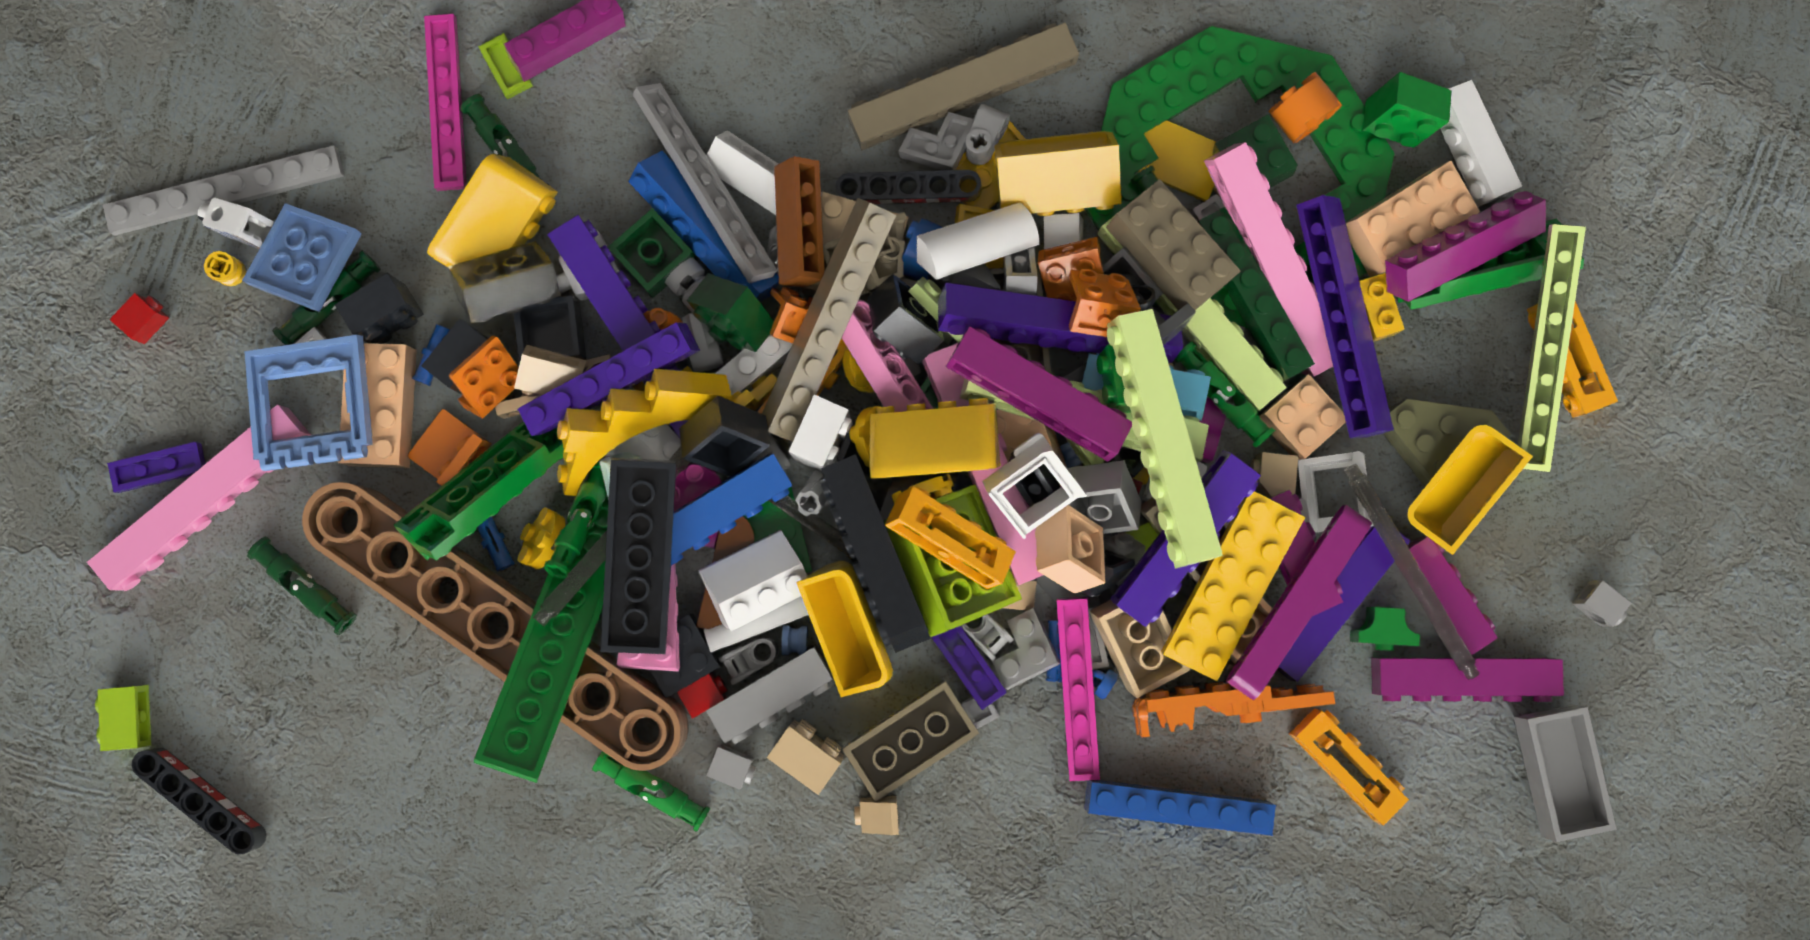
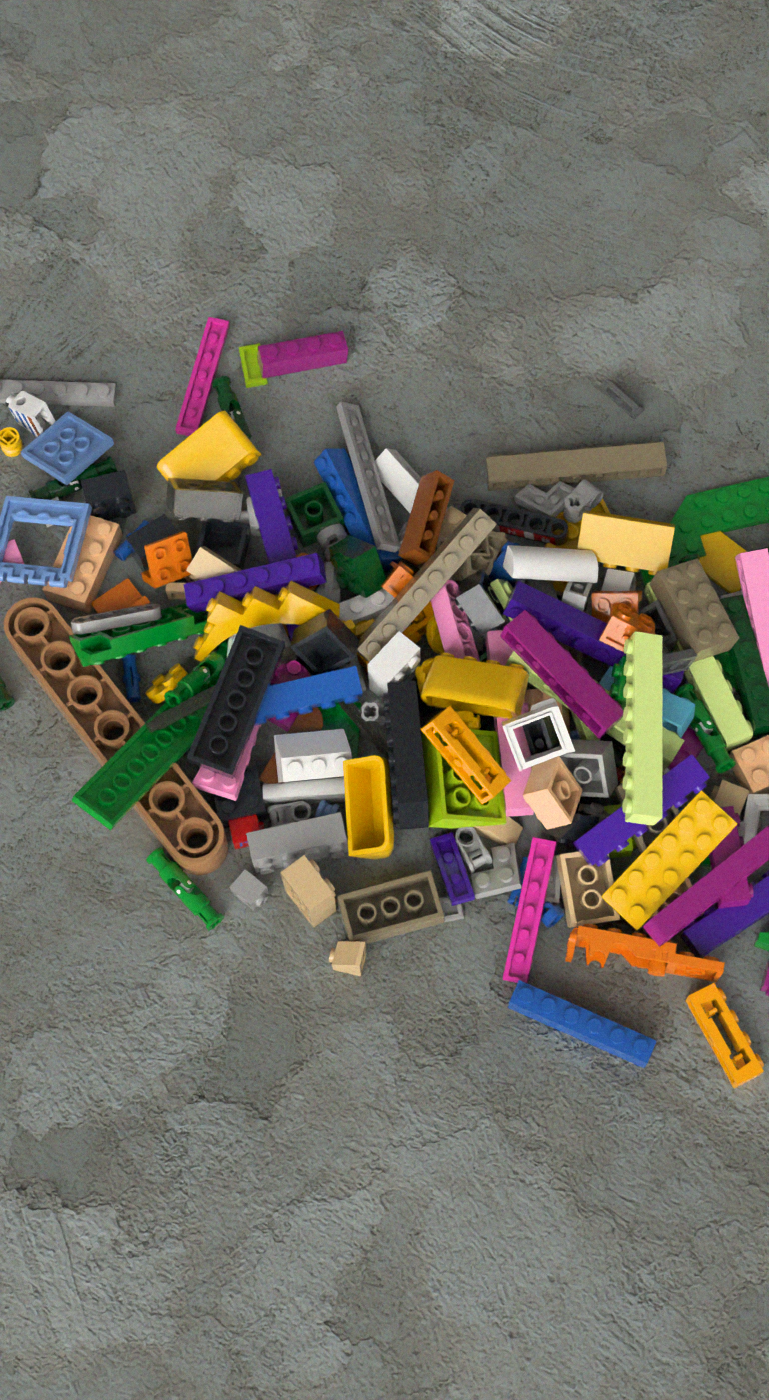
camera: 25 degrees right, 15 degrees down
(446, 480) = (116, 618): none -> light grey beam

